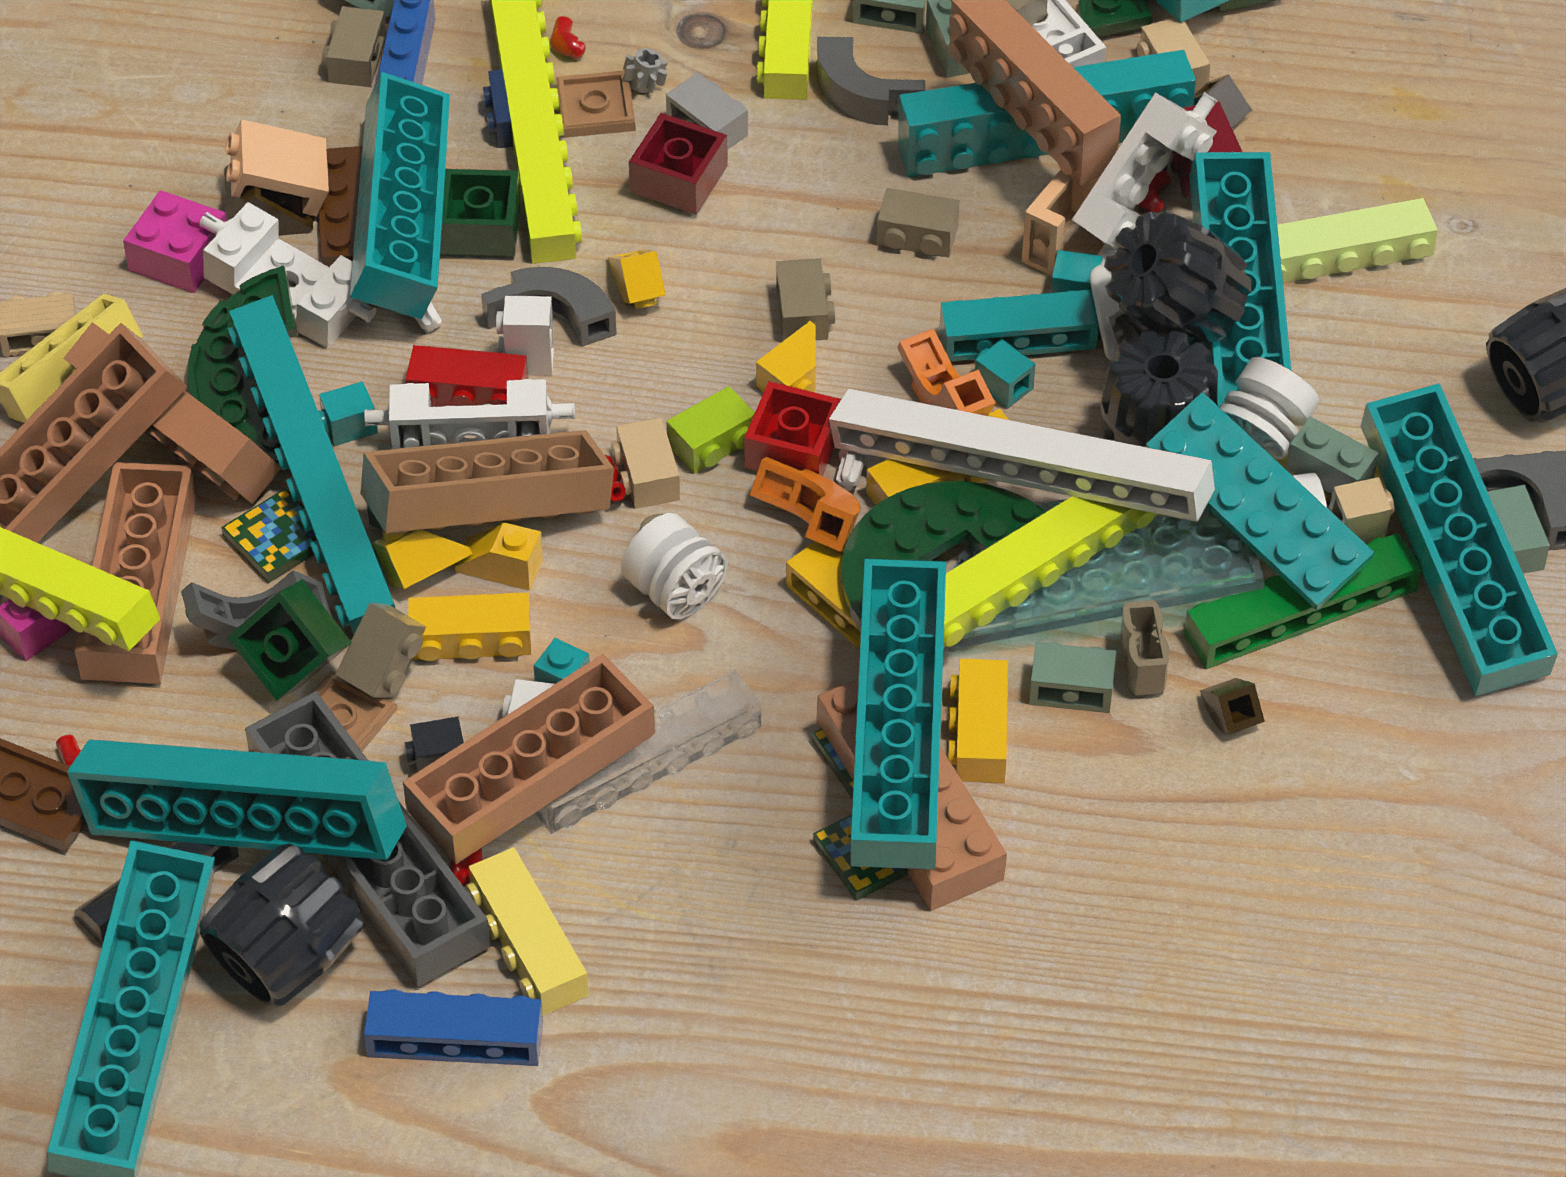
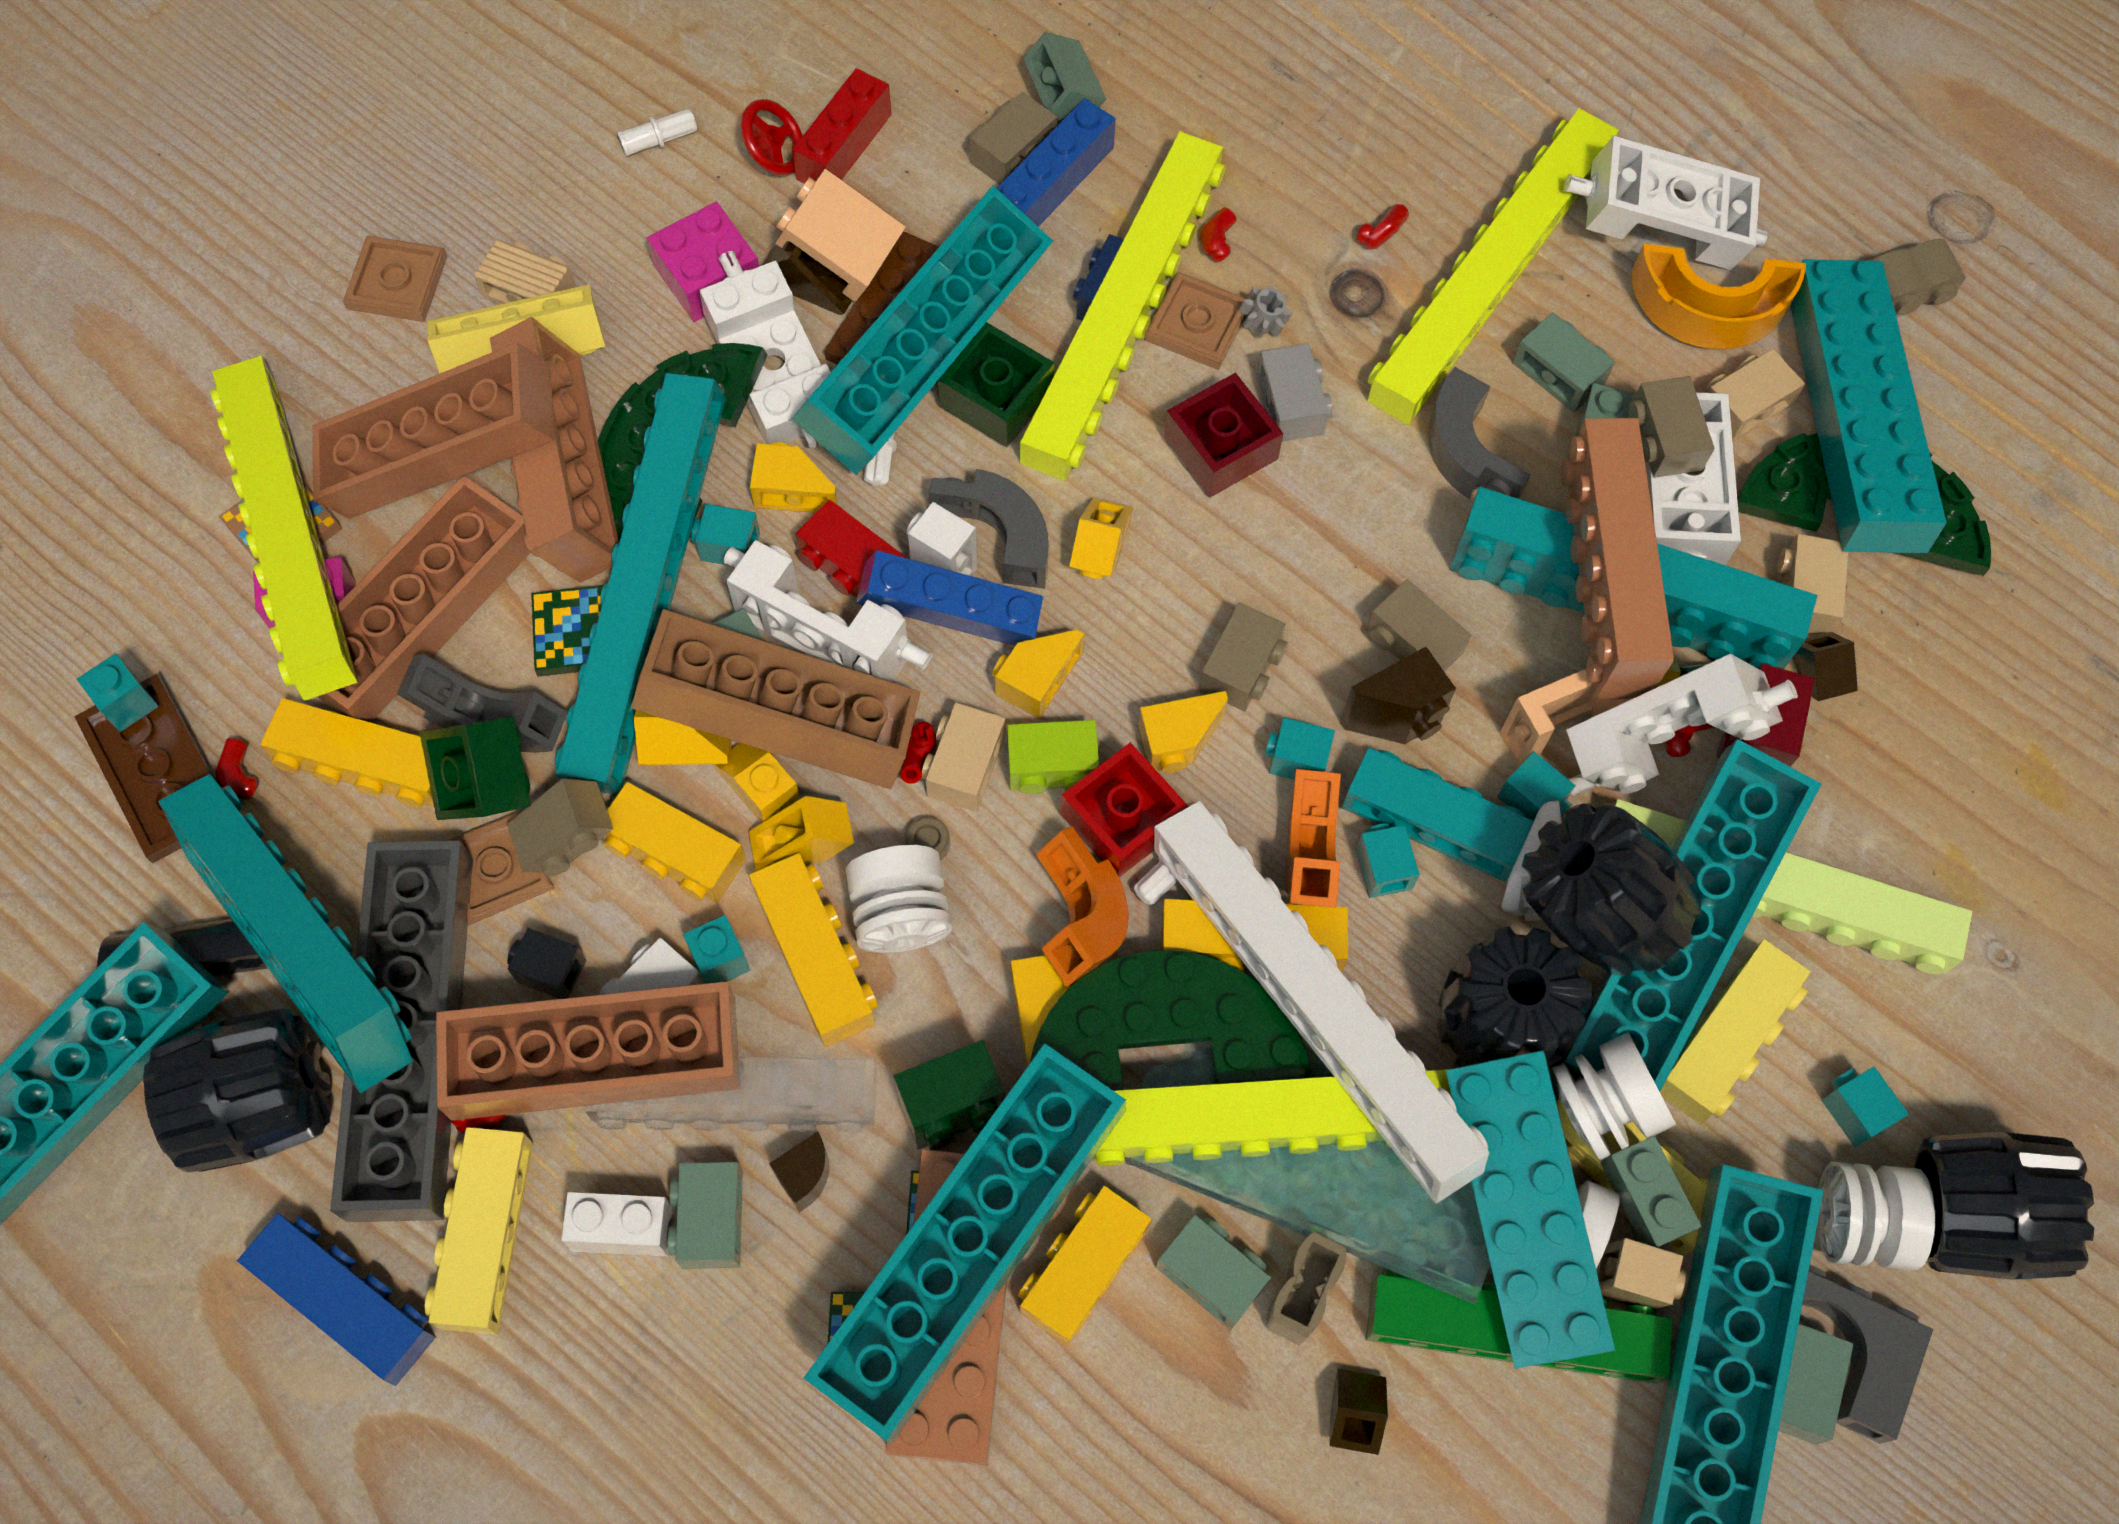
camera: 30 degrees right, 15 degrees up
(57, 175) = (657, 132): none -> white axle
(157, 136) = (764, 140): none -> red piece
(174, 694) = (349, 752): none -> yellow brick
(214, 101) = (843, 128): none -> red brick
(368, 353) = (788, 480): none -> yellow slope
(563, 358) = (950, 599): none -> blue brick
(564, 571) = (808, 827): none -> yellow slope
(627, 871) = (617, 1224): none -> white brick
(631, 637) = (813, 950): none -> yellow brick
(655, 383) = (1037, 670): none -> yellow slope
(688, 834) = (707, 1215): none -> sand green brick
(734, 772) = (803, 1171): none -> dark brown brick
(807, 662) = (949, 1095): none -> dark green brick
(884, 333) = (1298, 747): none -> teal brick
(941, 265) = (1400, 700): none -> dark brown slope
(1319, 346) = (1733, 1032): none -> light yellow brick
(1434, 353) = (1863, 1104): none -> teal brick
(1491, 403) = (1876, 1216): none -> white wheel

